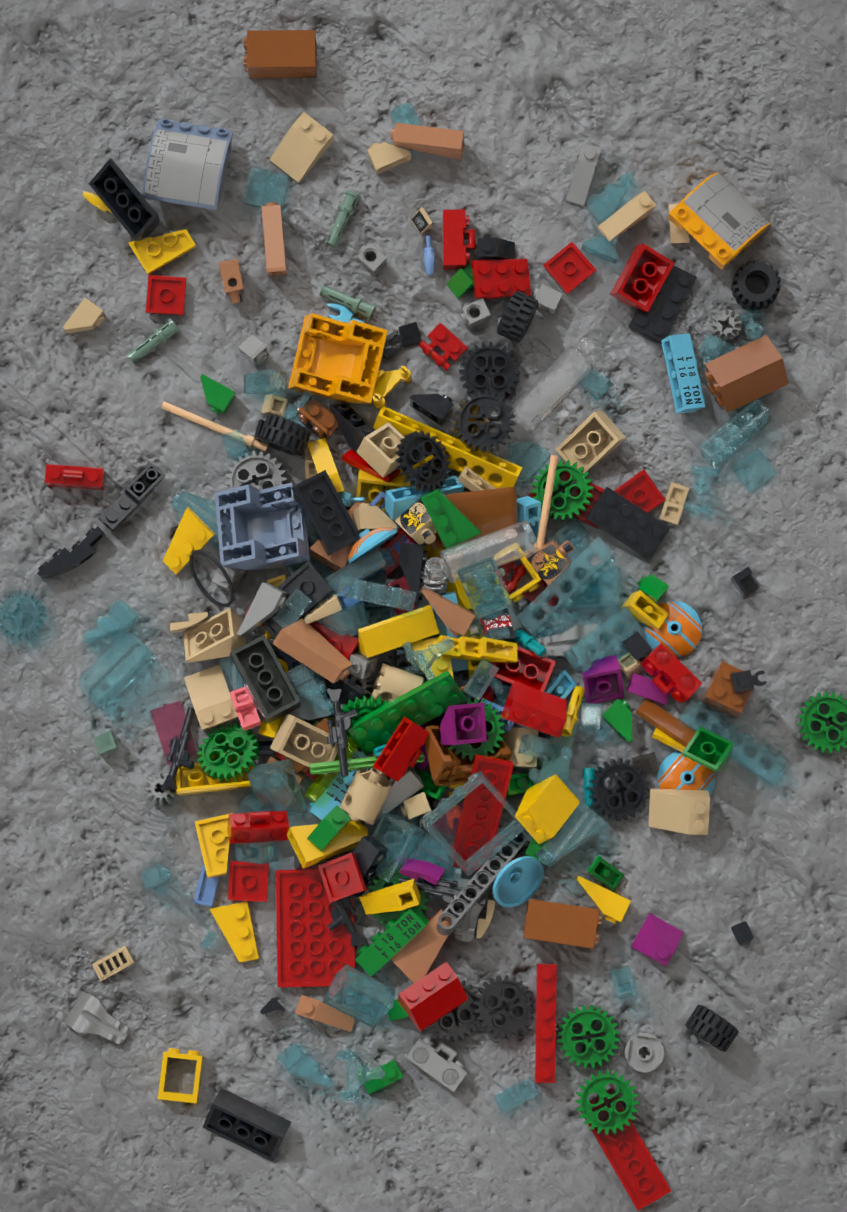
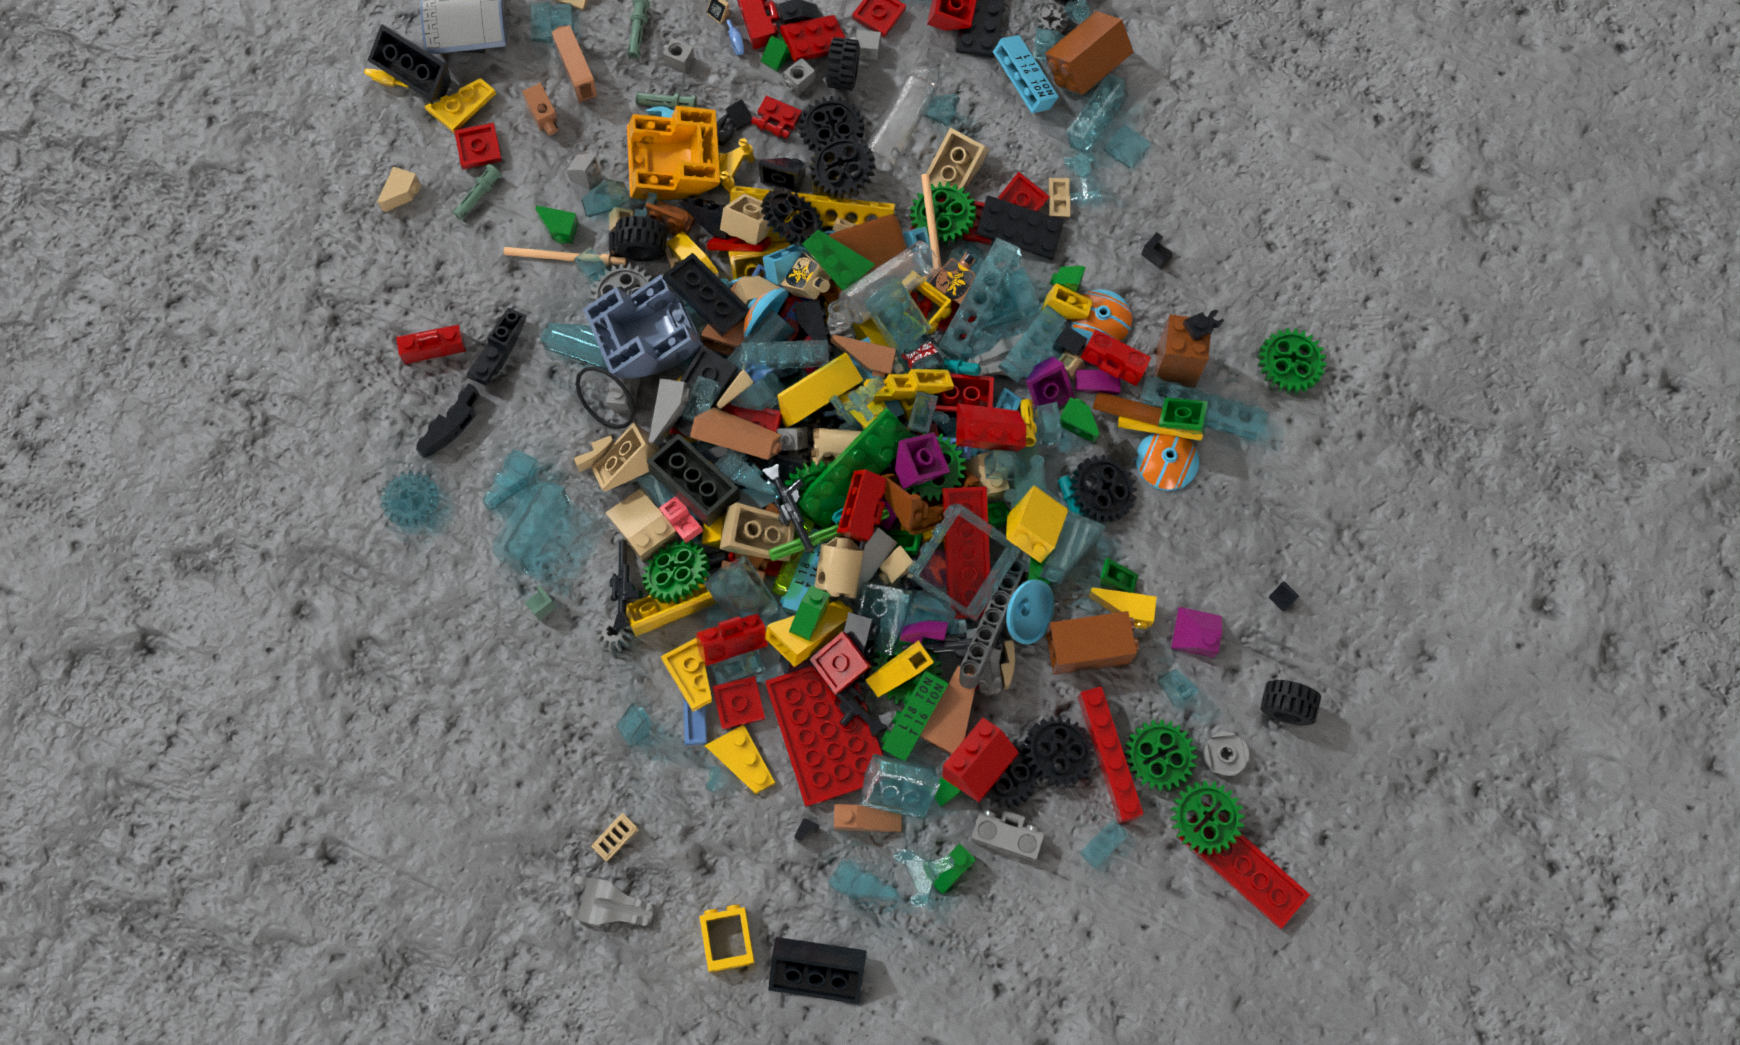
camera: 20 degrees left, 10 degrees down
(169, 723) = (602, 564): clear pink piece -> none
(190, 536) = (568, 362): yellow wing -> none
(530, 457) = (900, 194): clear light blue slope -> none
(680, 810) = (1174, 490): tan slope -> none

